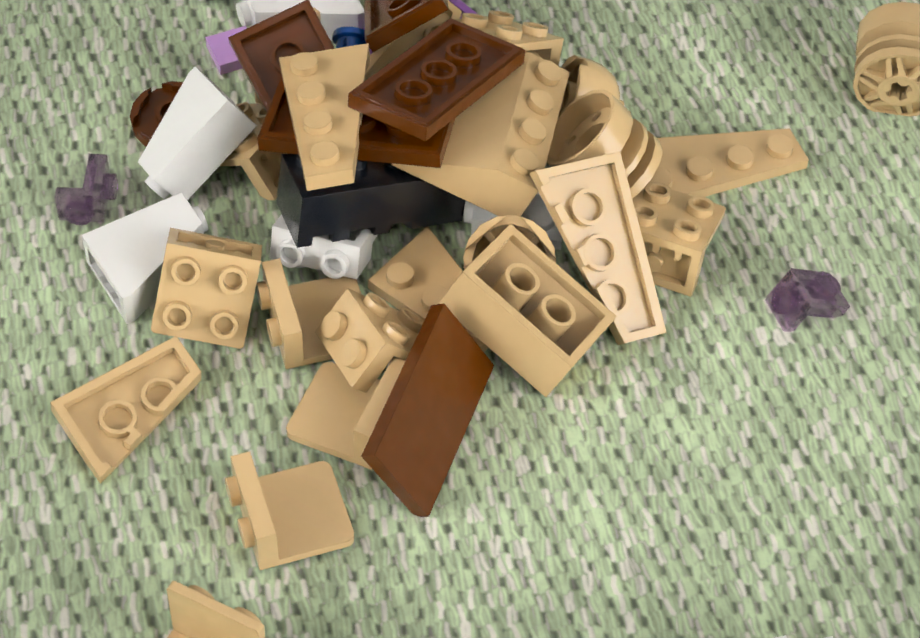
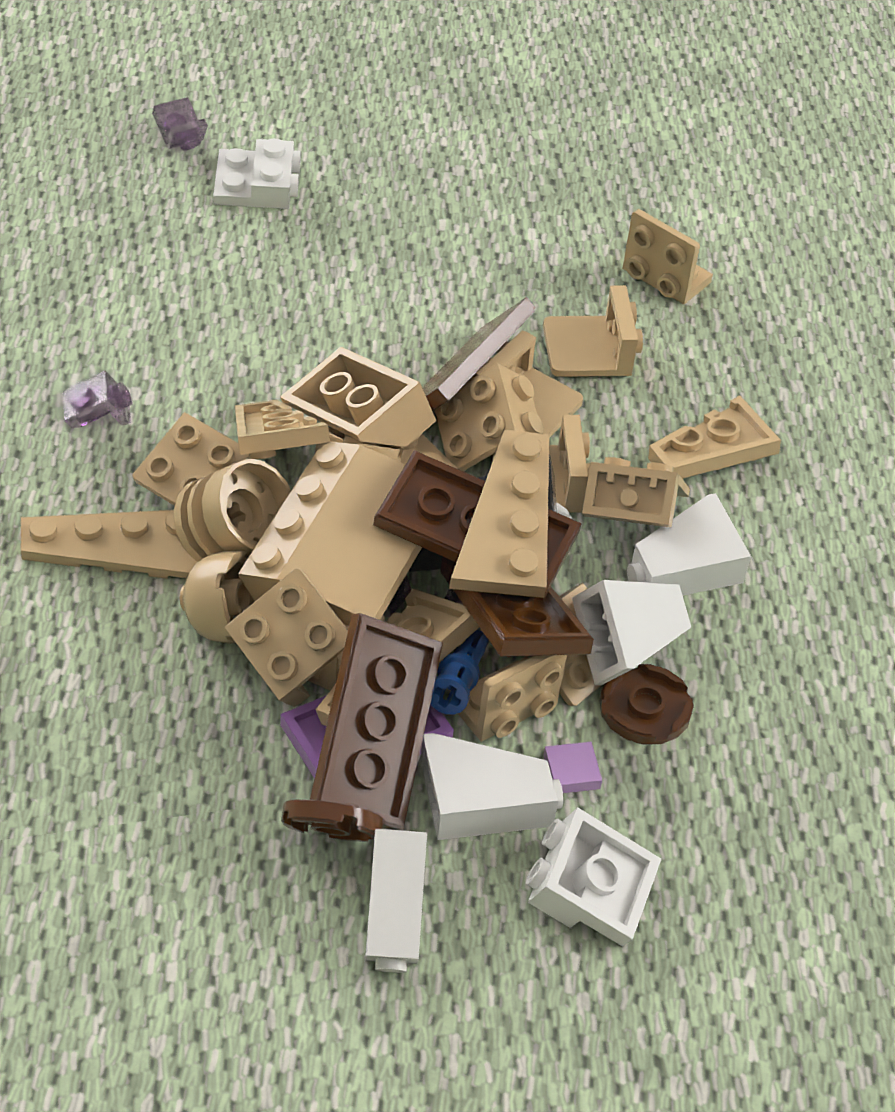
camera: 170 degrees left, 5 degrees down
(90, 202) = (743, 612): bracket -> none
(436, 79) = (390, 526): reddish brown tile -> none

